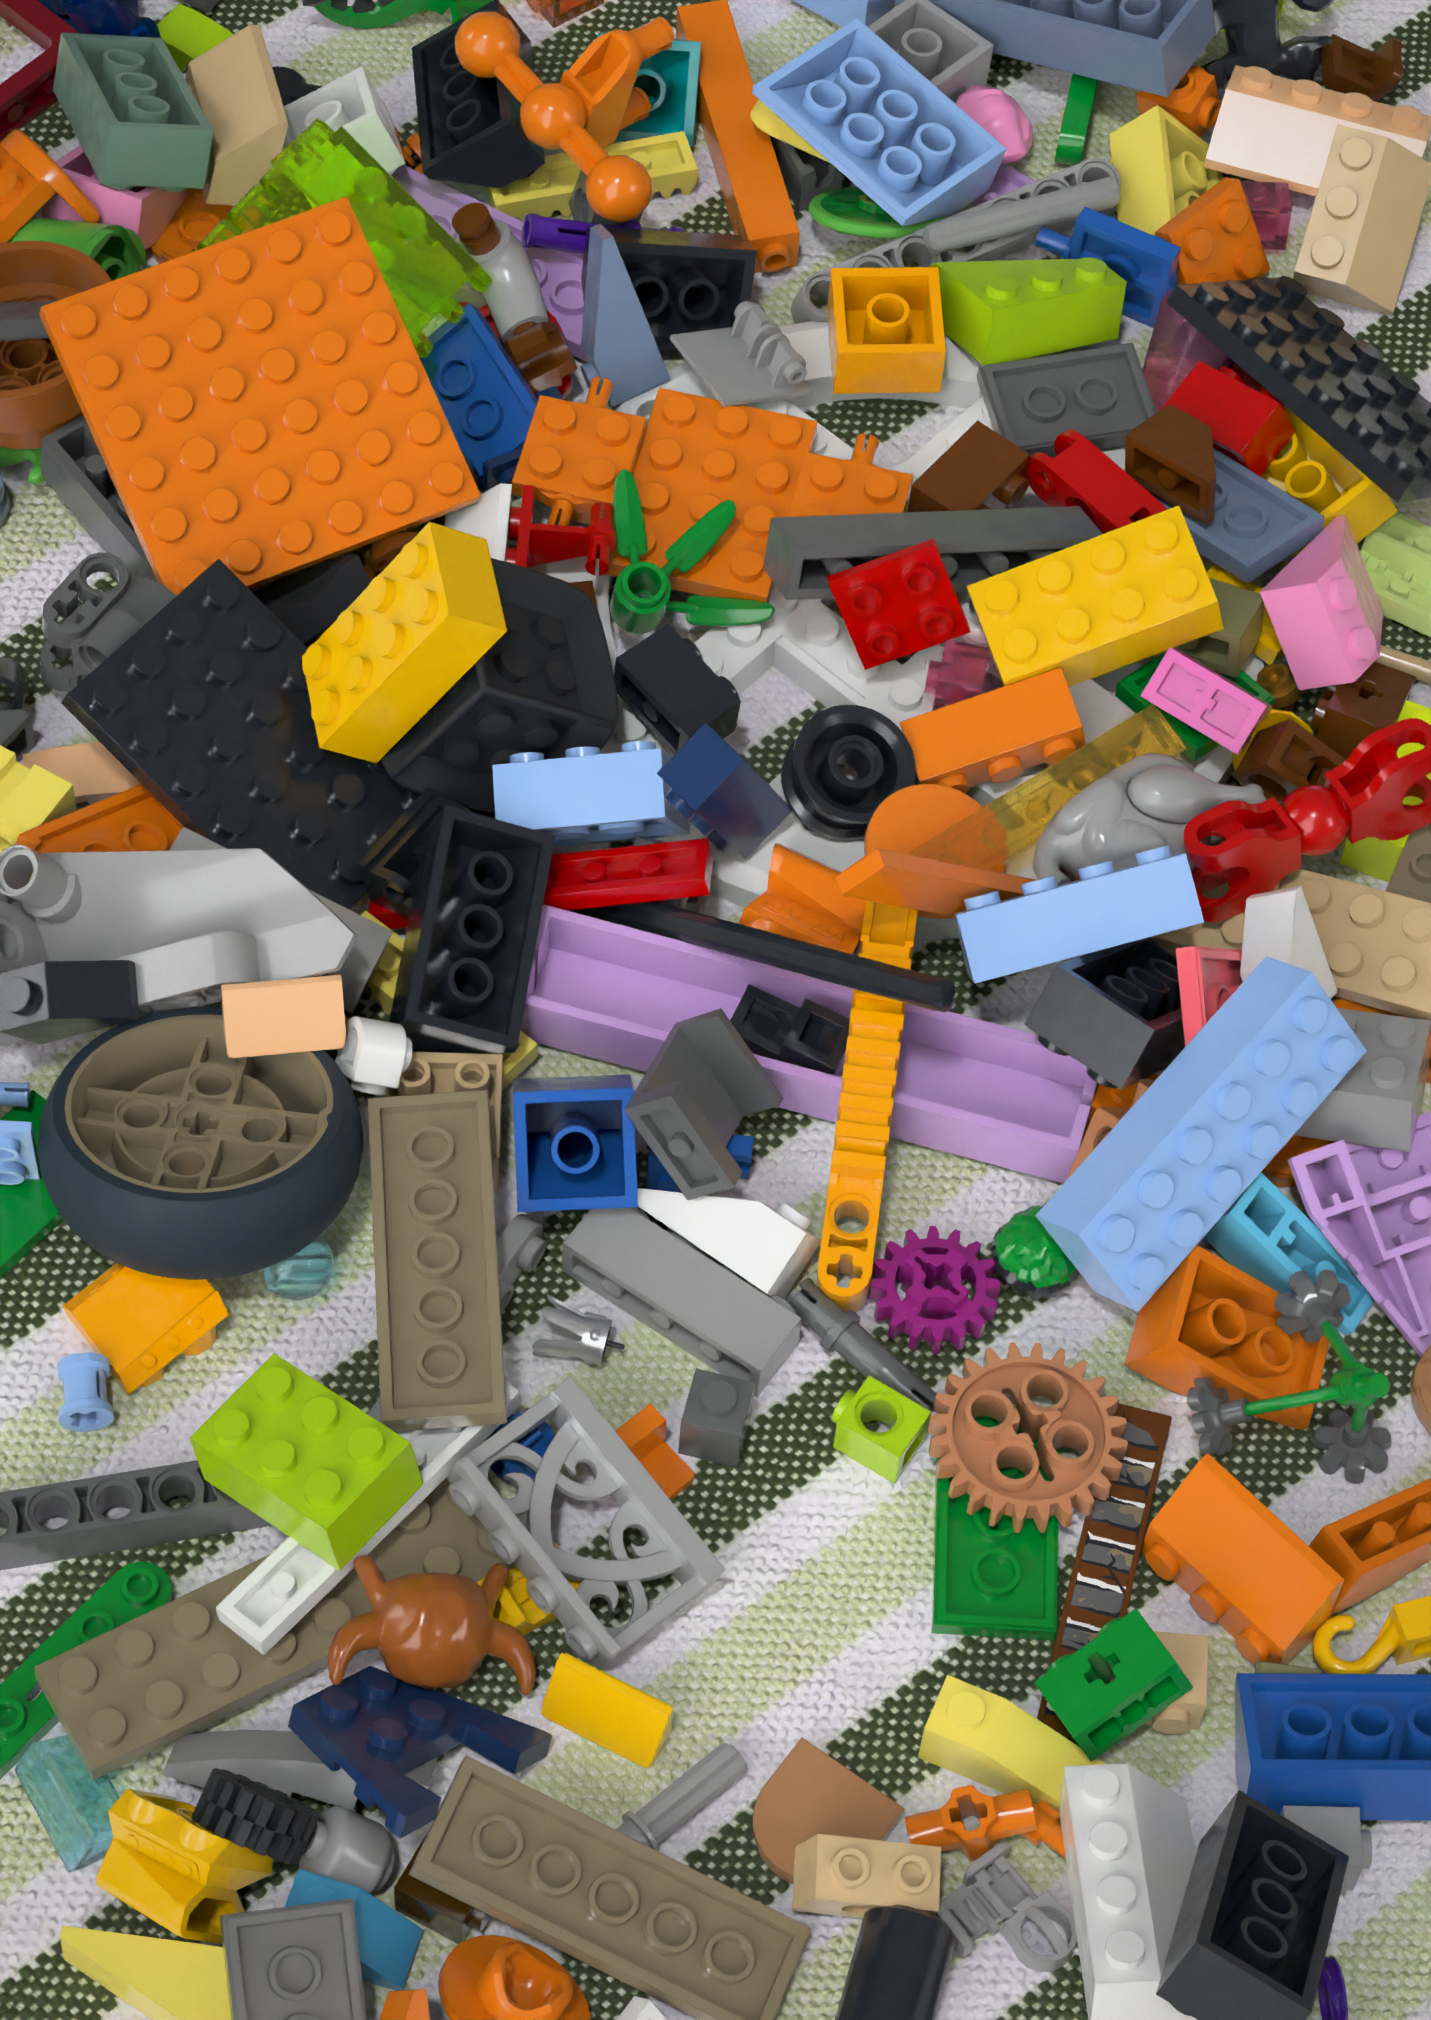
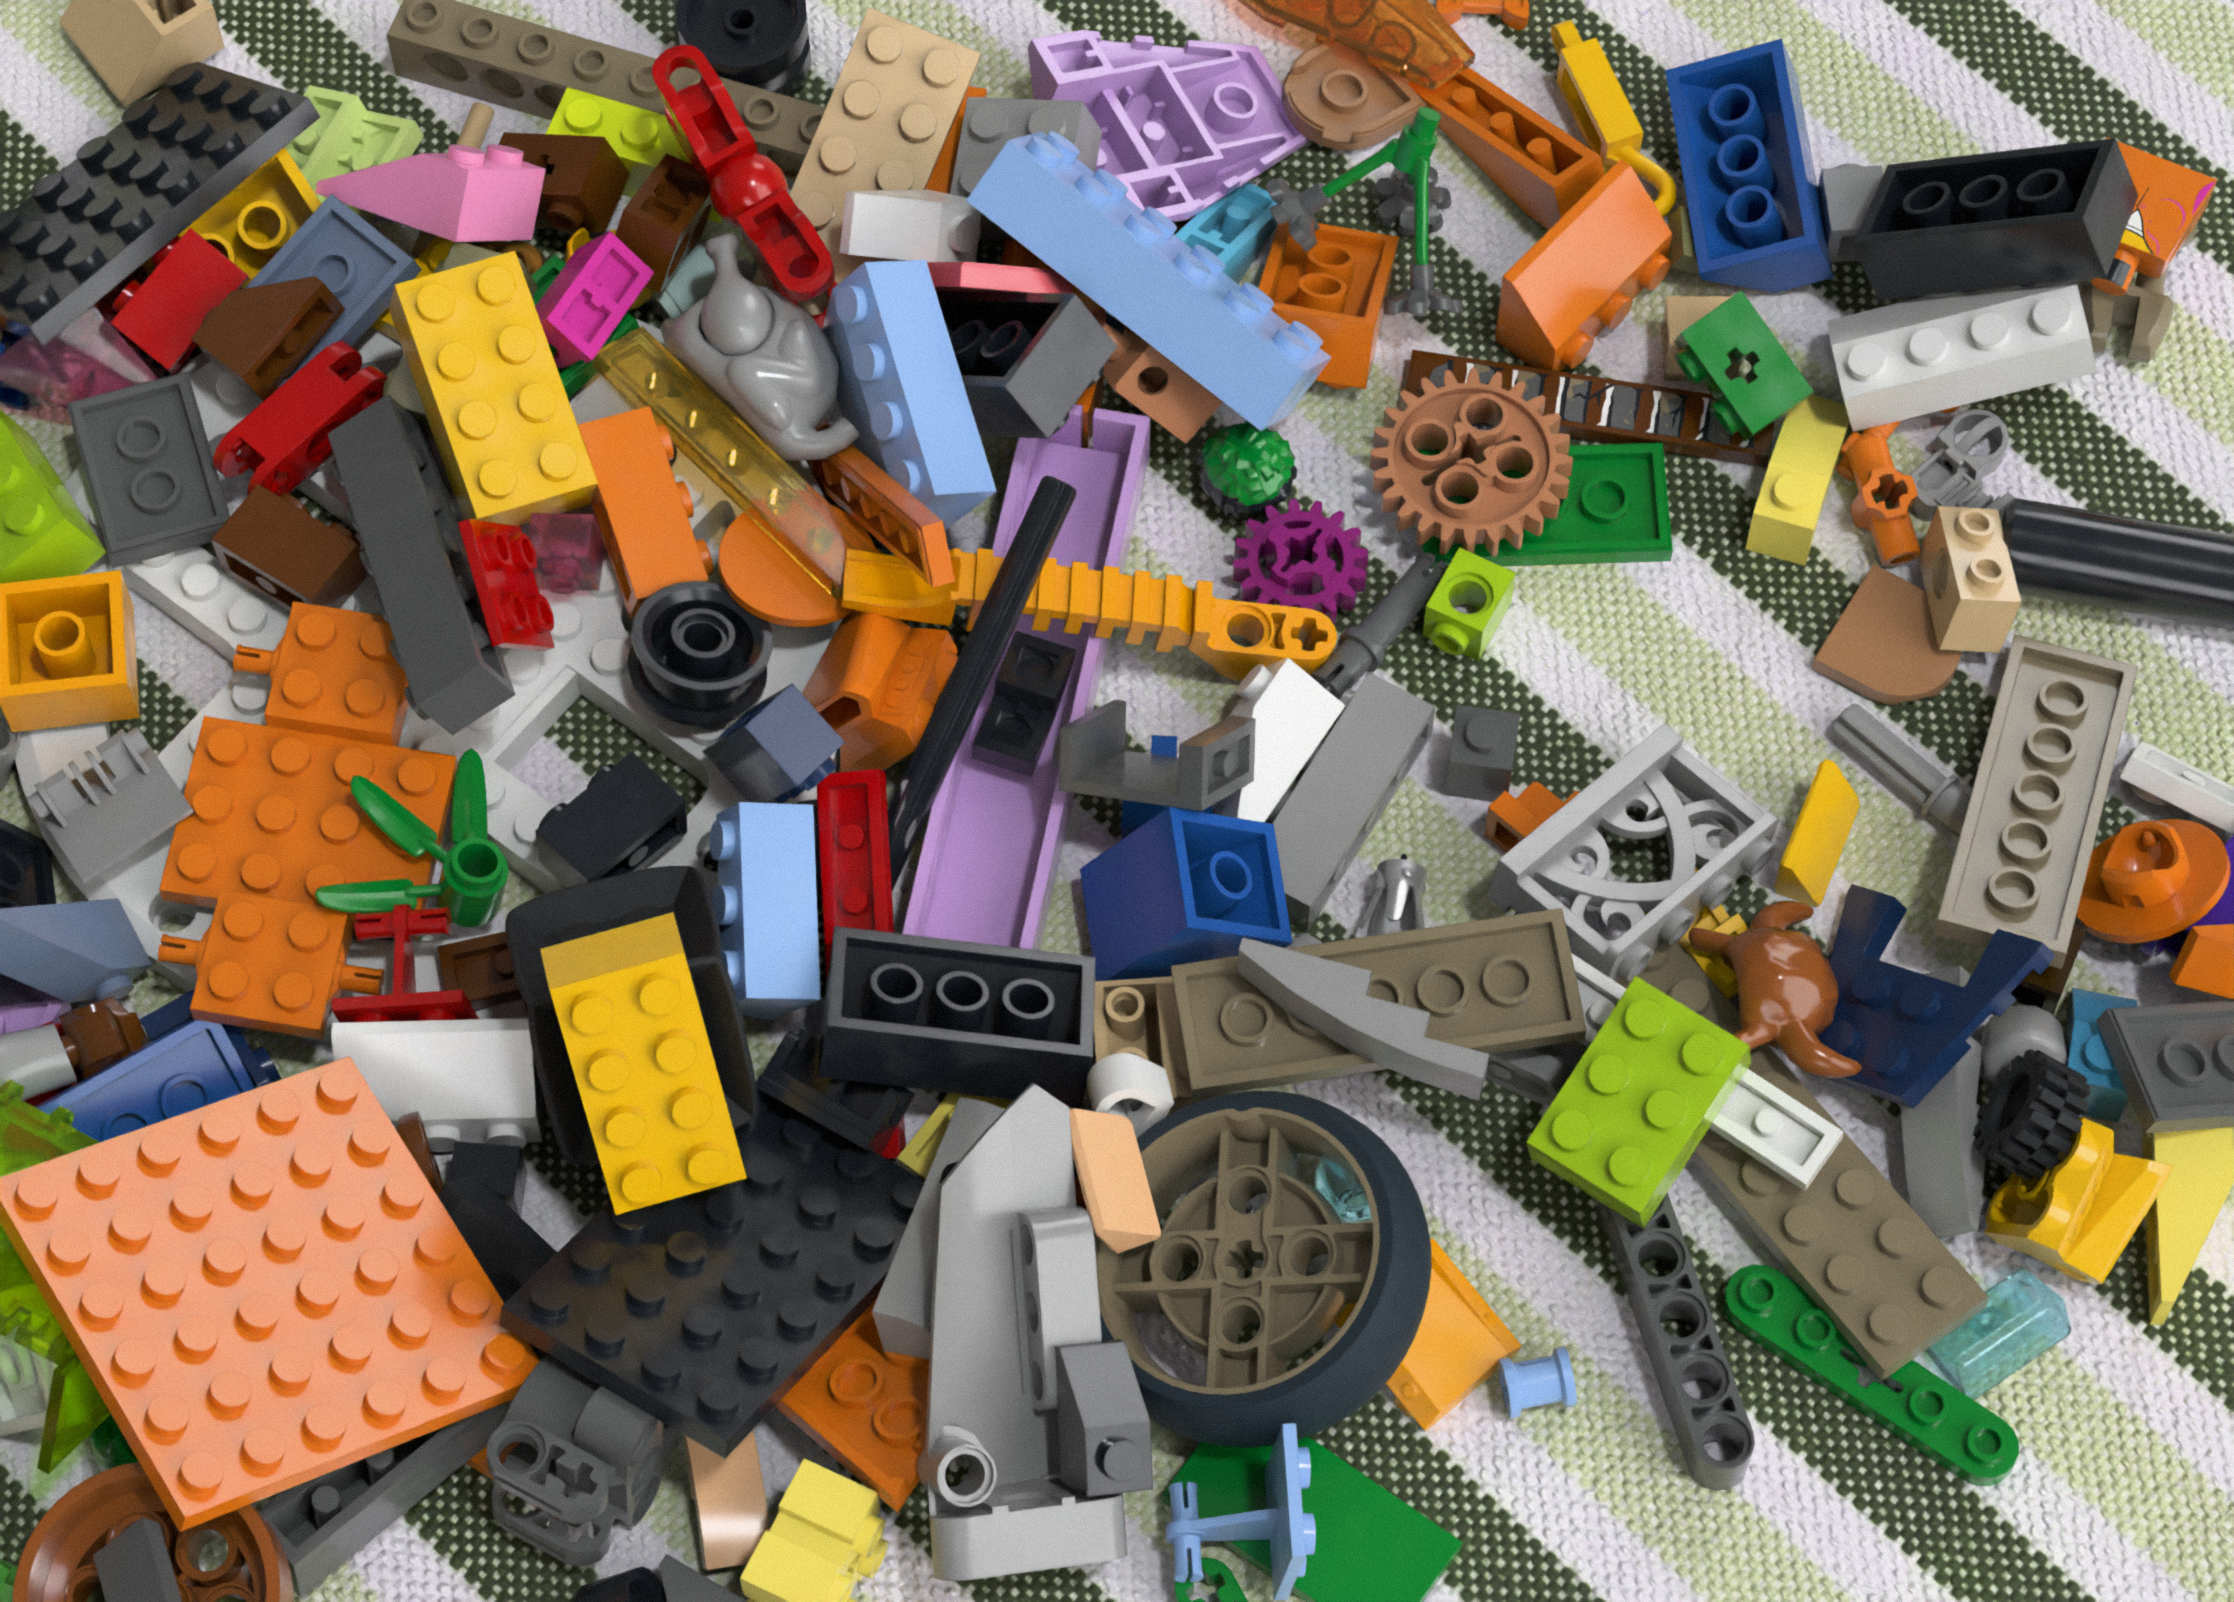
camera: 90 degrees left, 5 degrees up
(412, 1208) = (1338, 1005): none -> light grey slope

